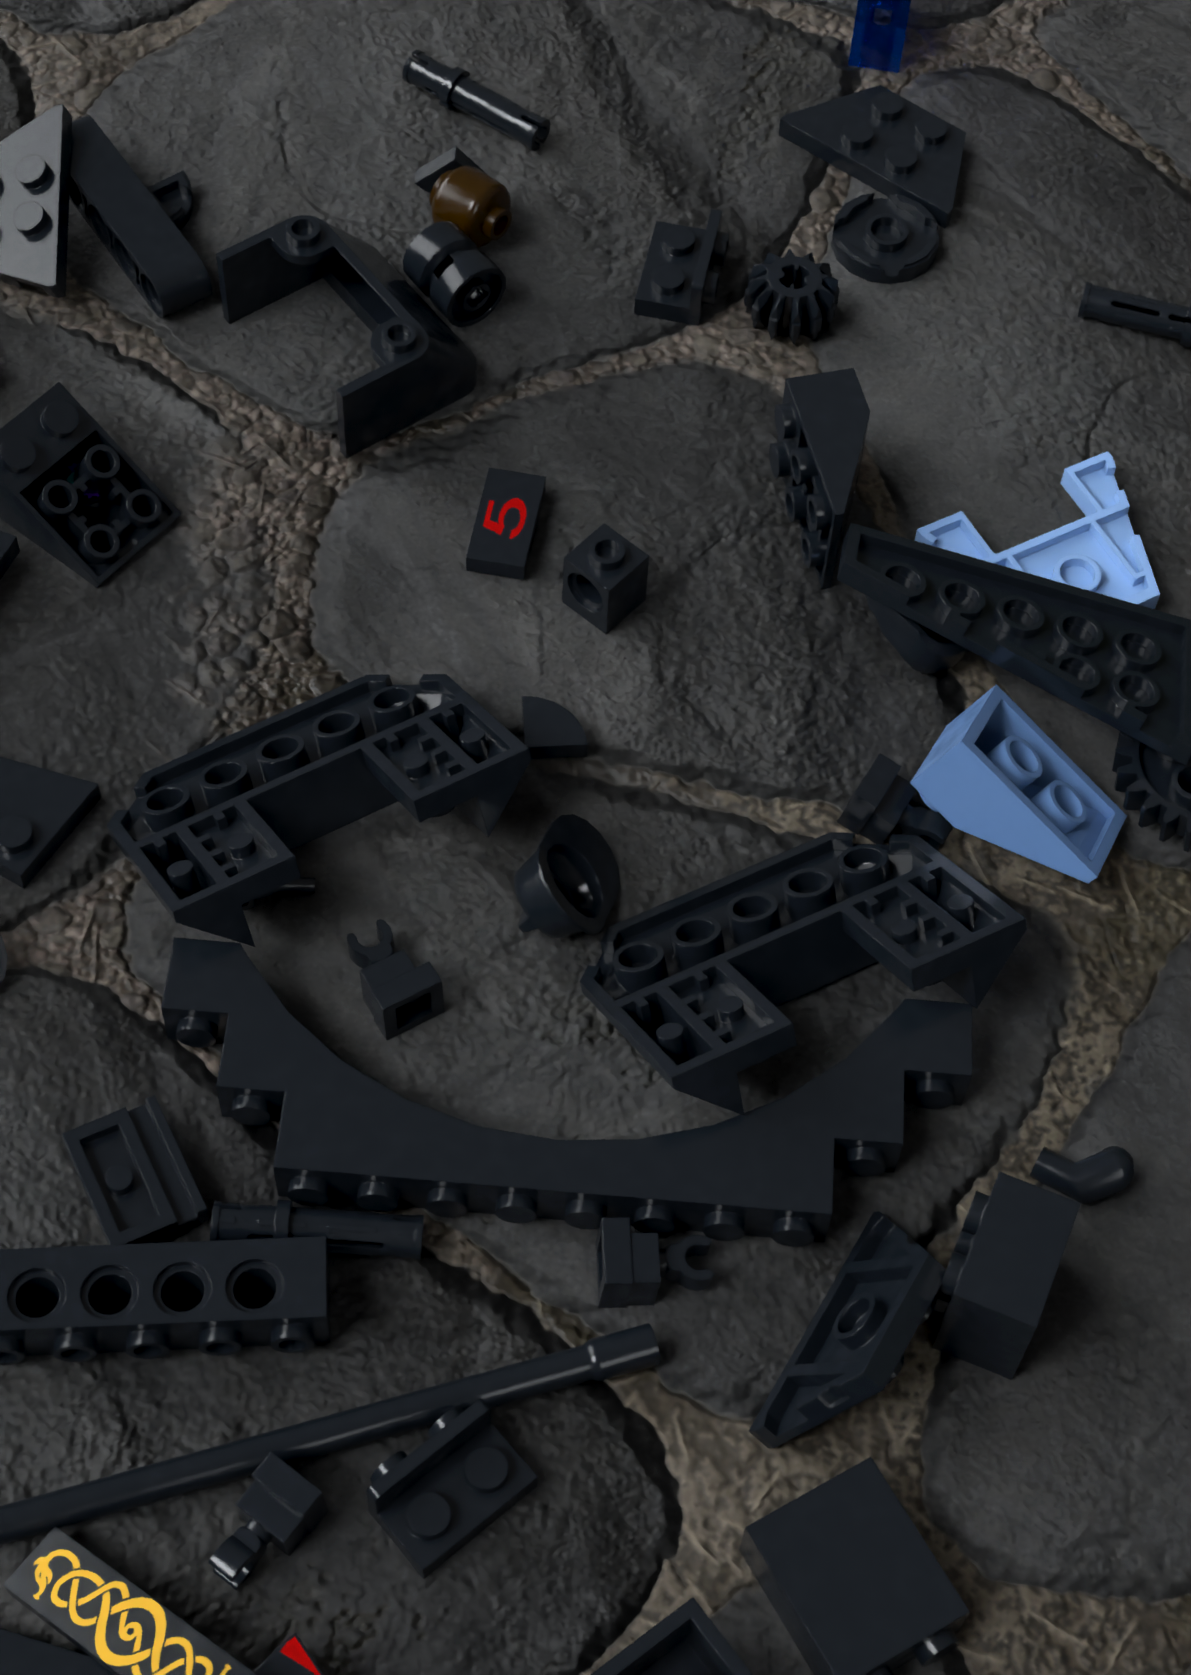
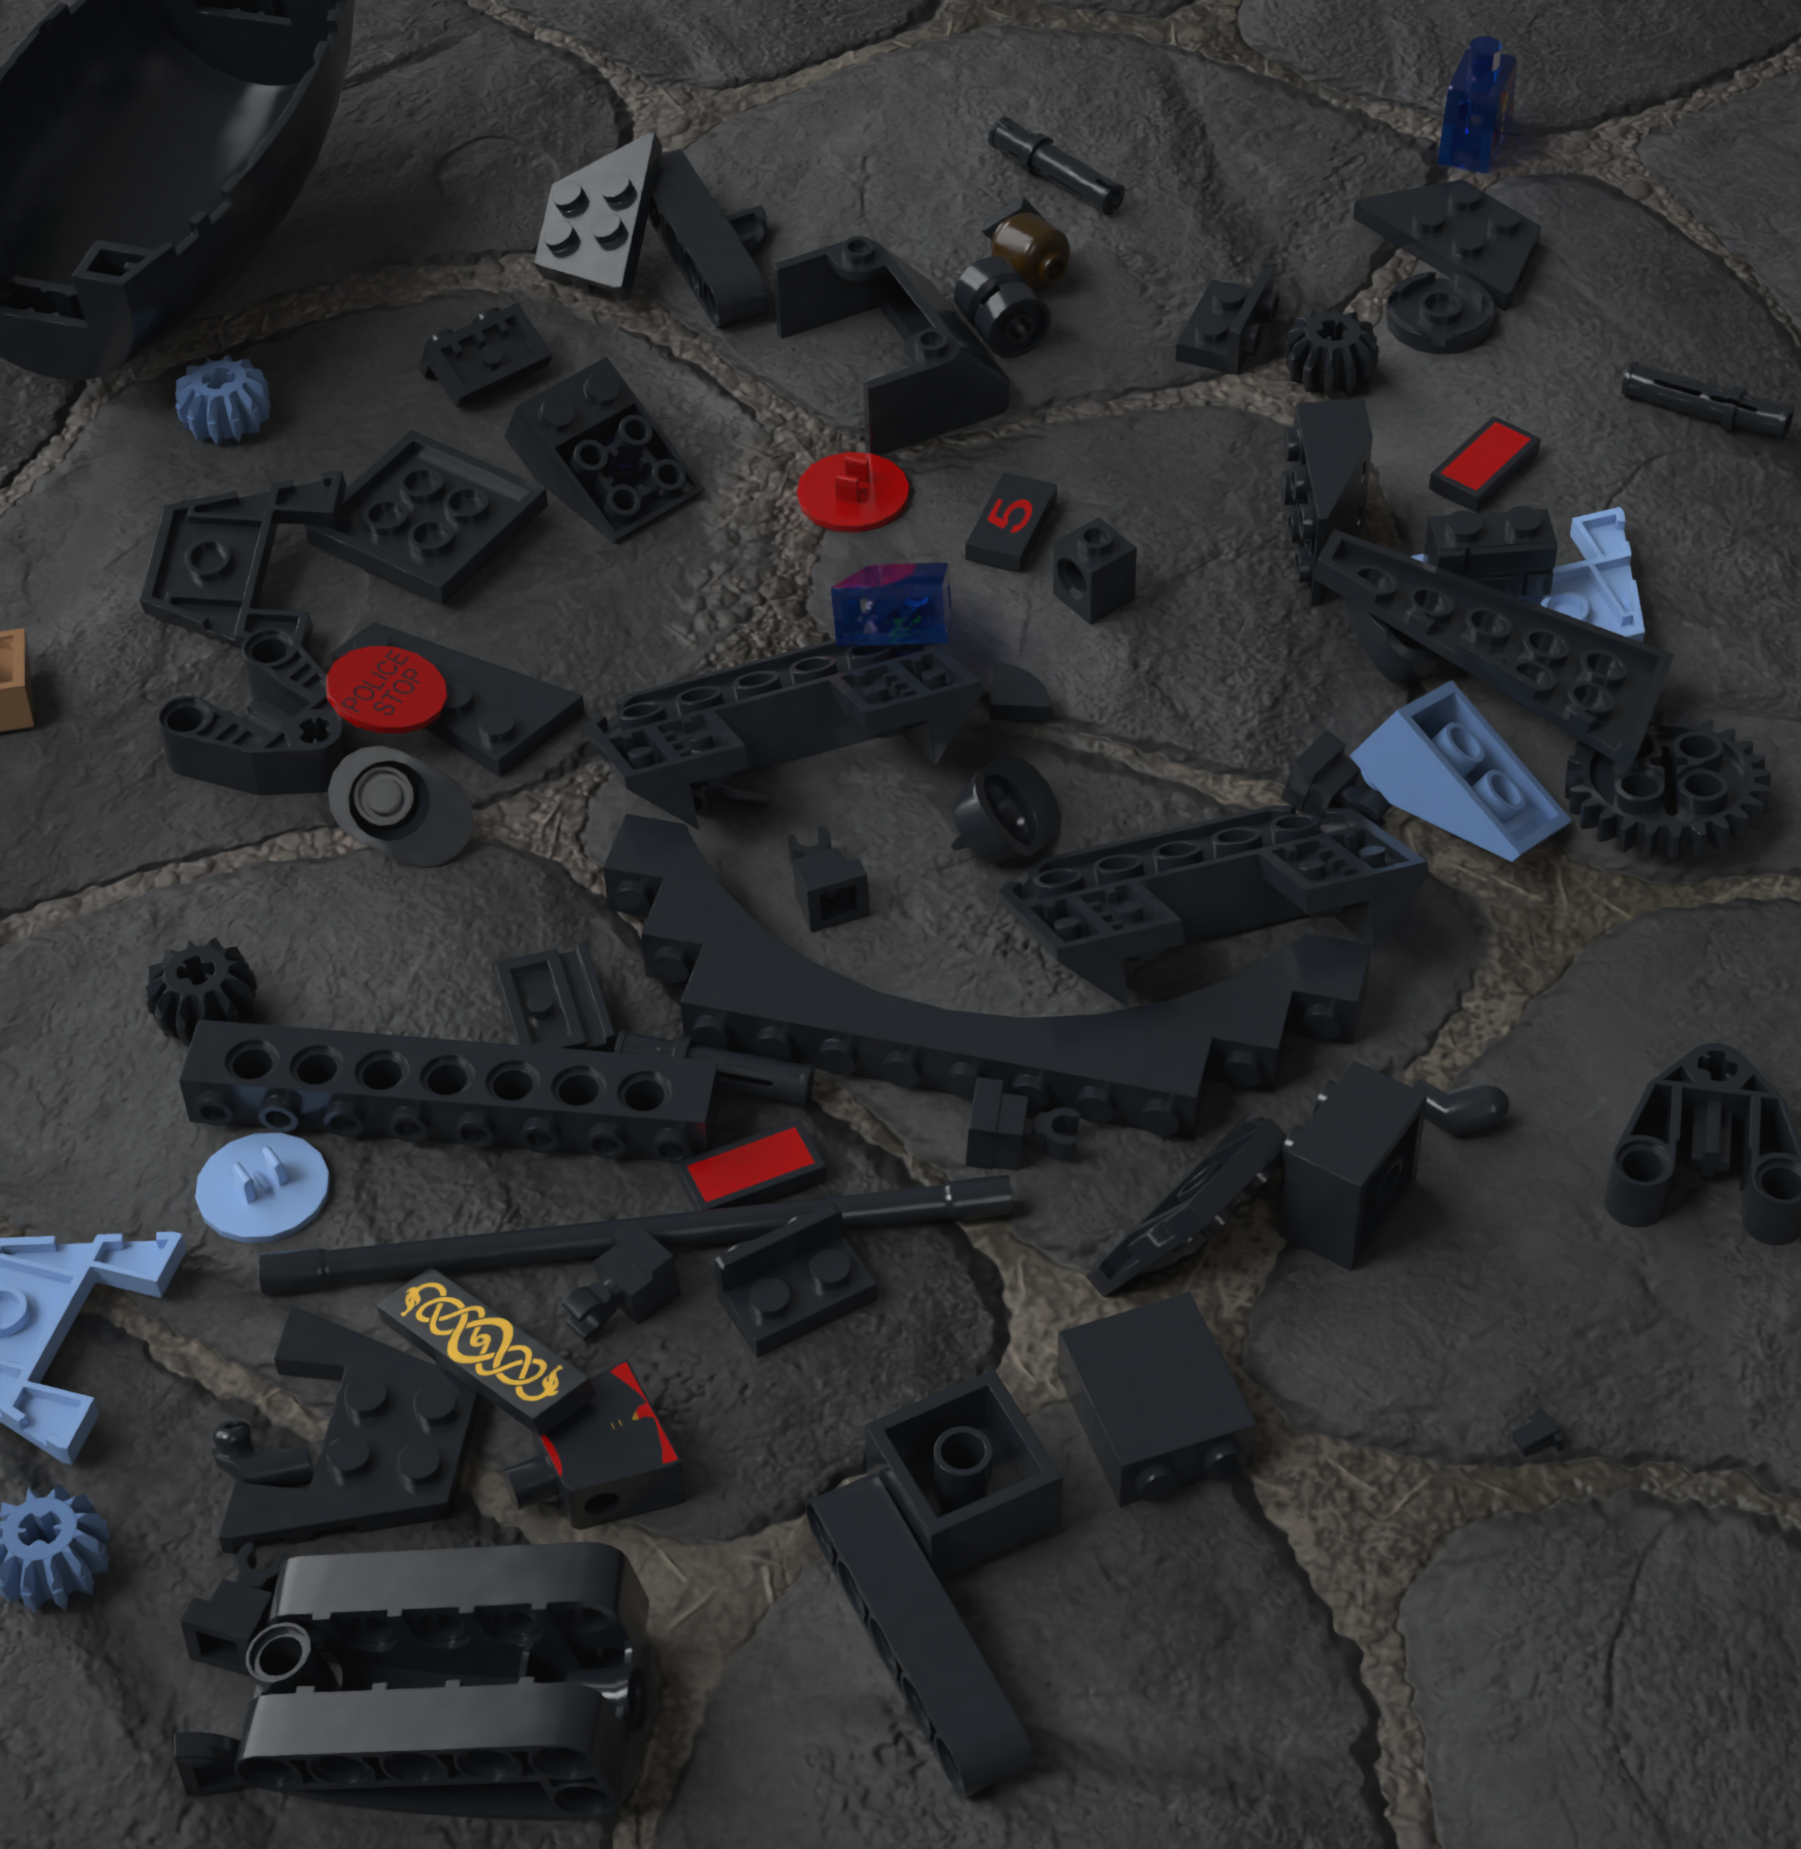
camera: 15 degrees right, 10 degrees down
(336, 501) = (852, 492): none -> red piece
(378, 1350) = (753, 1169): none -> tile
(411, 647) = (903, 605): none -> clear blue torso
(962, 409) = (1484, 463): none -> tile
(1007, 524) = (1498, 549): none -> black brick

